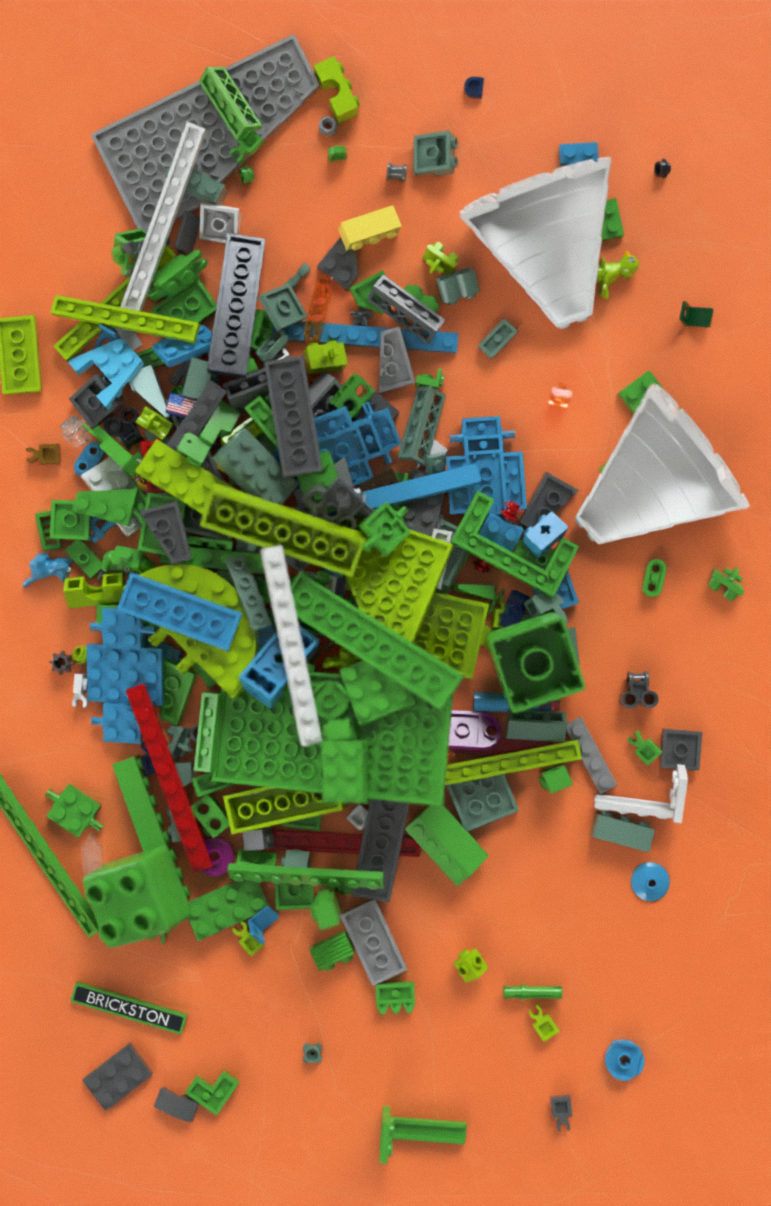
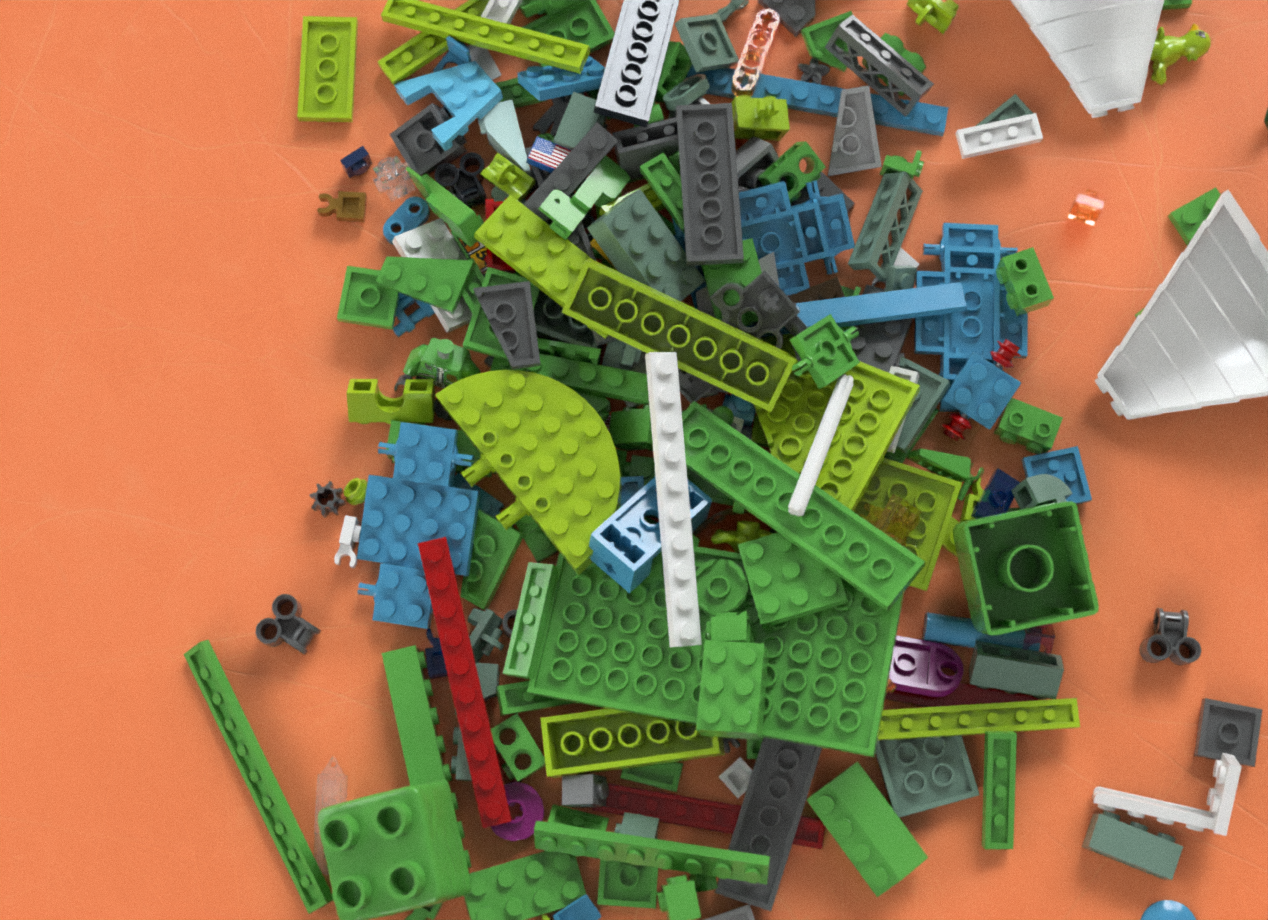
camera: 10 degrees right, 10 degrees down
(39, 515) = (331, 288): bright green slope -> none
(44, 567) = (321, 360): dark azure animal -> none
(48, 422) = (356, 162): none -> dark blue plate
(51, 754) = (290, 627): none -> dark grey piece
(74, 810) = (314, 718): bright green plate -> none
(84, 558) = (380, 356): bright green plate -> none
(179, 611) = (515, 434): dark azure plate -> none
(248, 592) = (616, 420): sand green bracket -> none
(388, 596) = (820, 445): none -> white axle
(443, 640) = (895, 520): none -> clear yellow plate
(457, 285) = (954, 43): sand green brick -> none
(494, 352) = (999, 136): none -> white plate
(519, 457) = (1024, 282): none -> bright green brick
(531, 806) = (999, 789): none -> bright green plate
(544, 534) = (1051, 392): brick -> none
(545, 580) = (1044, 457): bright green plate -> none
(547, 498) = (1054, 351): dark grey wing -> none
(555, 778) = (1039, 750): bright green brick -> none
(591, 755) = (1093, 728): light grey plate -> none
(646, 750) = (1176, 727): bright green plate -> none
(653, 578) = (1204, 479): bright green plate -> none

